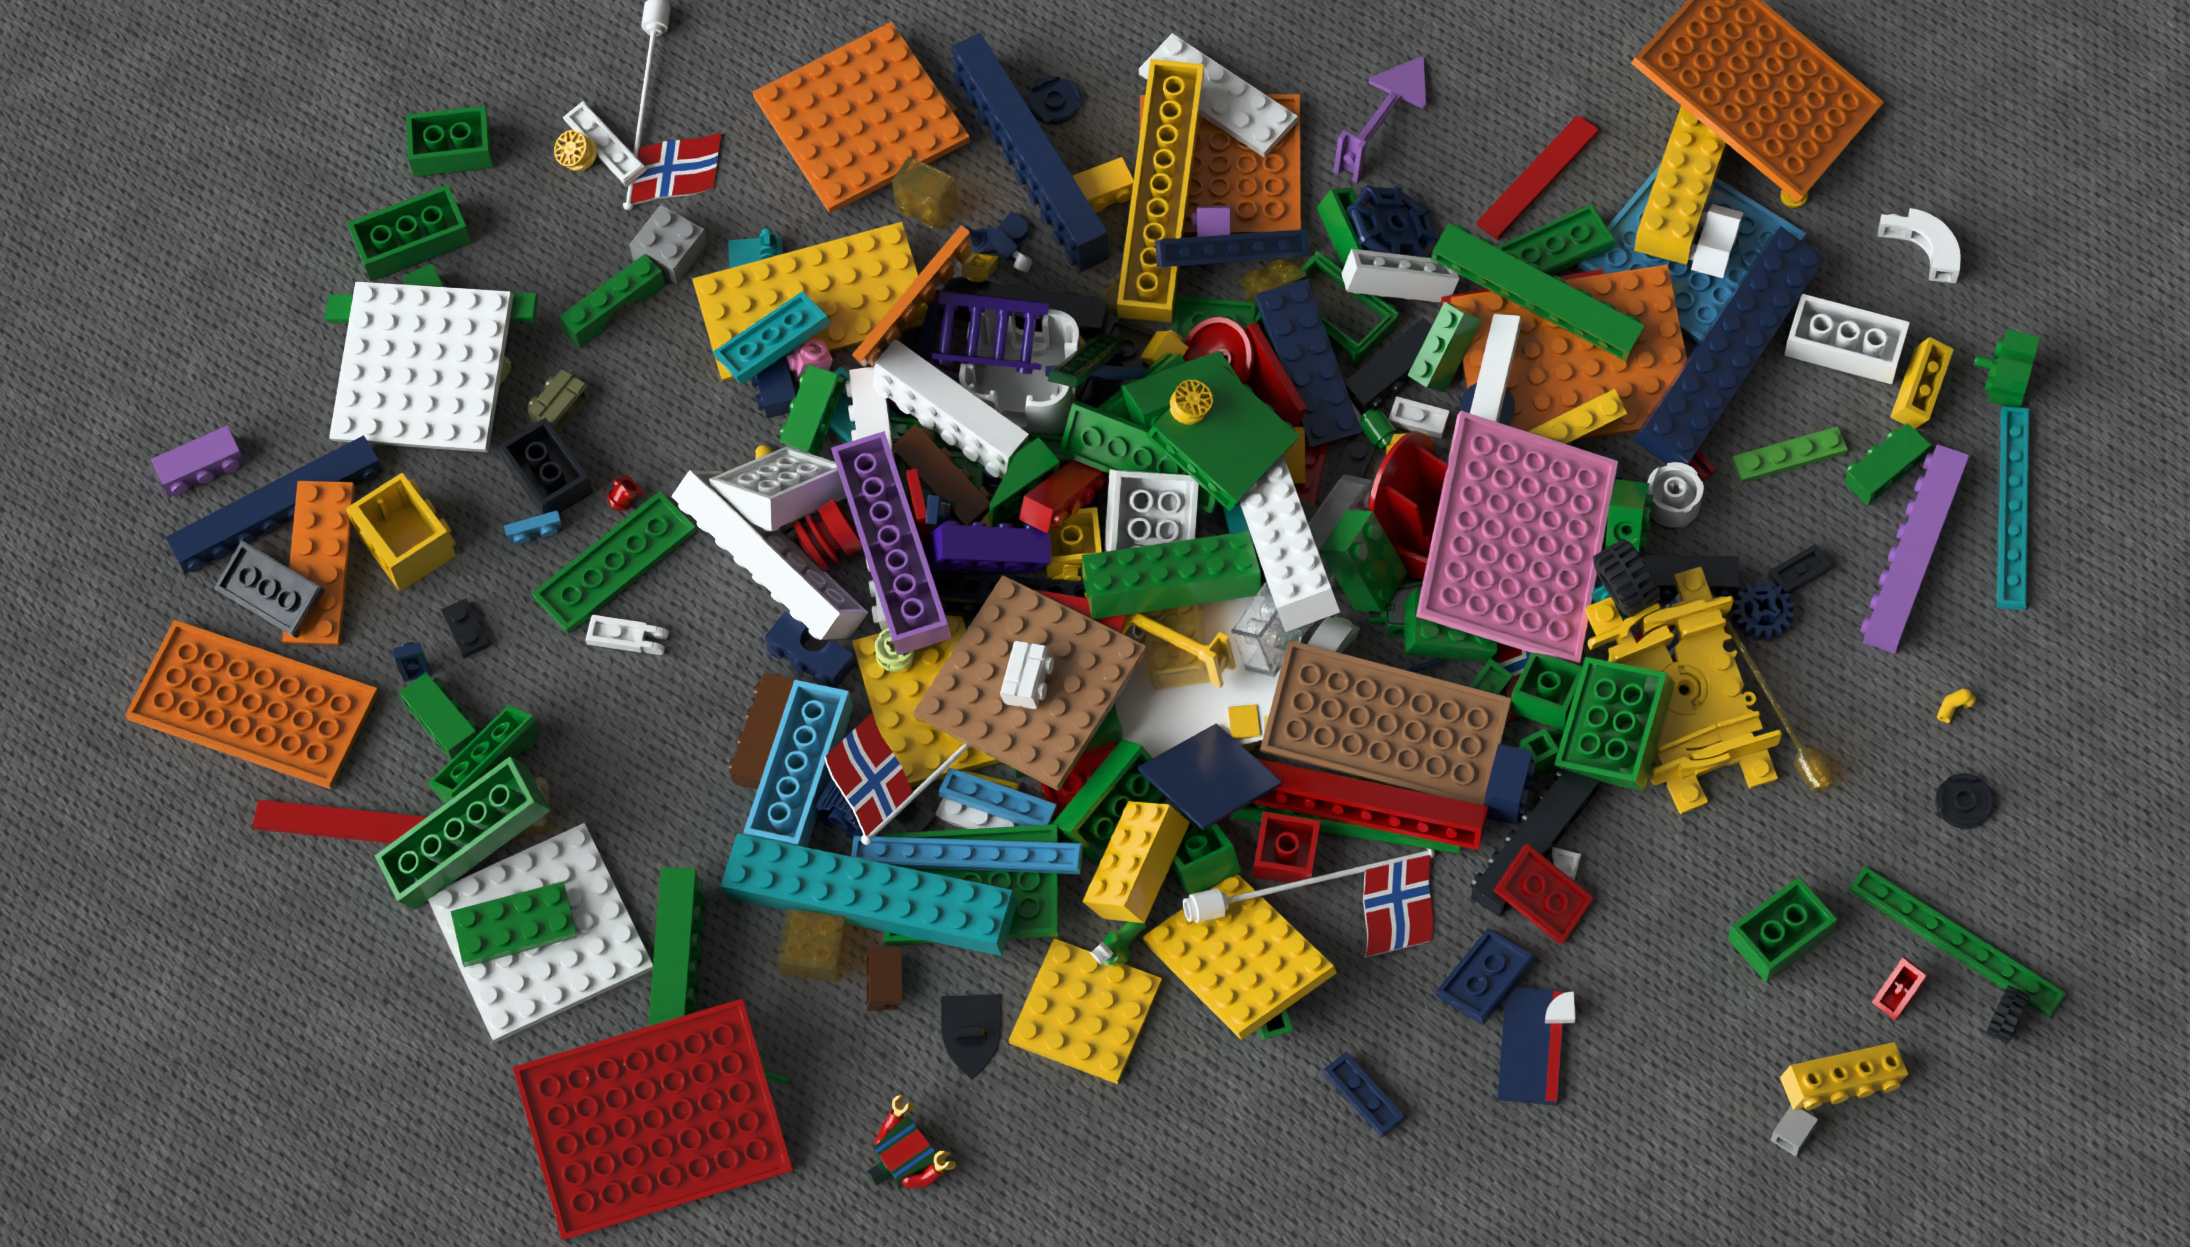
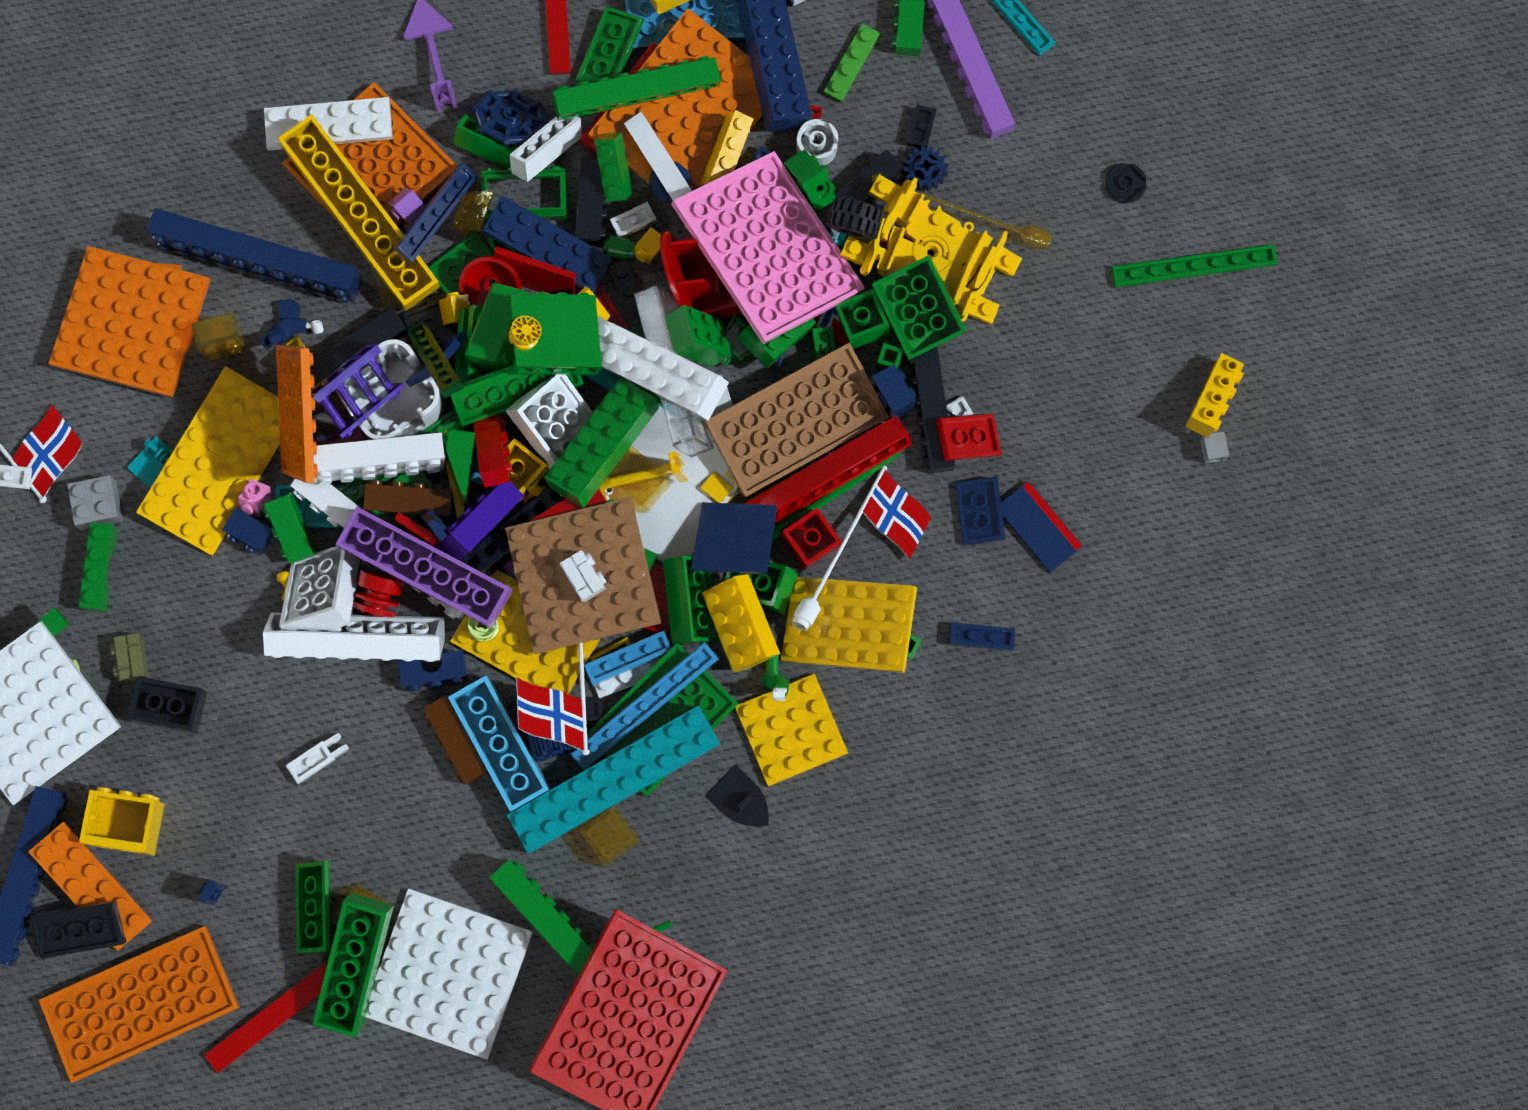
camera: 55 degrees left, 15 degrees up
(438, 714) = (259, 906): green brick -> none
(464, 628) = (217, 841): black plate -> none
(513, 924) = (432, 985): green plate -> none
(543, 524) = (201, 738): dark azure plate -> none
(613, 562) = (264, 722): green plate -> none
(623, 493) = (228, 676): red brick -> none
(771, 337) = (222, 506): teal plate -> none
(883, 978) = (666, 816): reddish brown hinge -> none
(905, 1152) = (779, 902): torso -> none
(1051, 107) = (237, 214): dark blue tile -> none
(1106, 184) = (318, 235): yellow brick -> none
(1561, 1009) = (1038, 492): white tile -> none
(1782, 929) = (1107, 342): green brick -> none
(1900, 988) = (1194, 319): red slope -> none
(1954, 700) = (1069, 130): yellow arm -> none
(2008, 1014) = (1261, 283): black tyre -> none

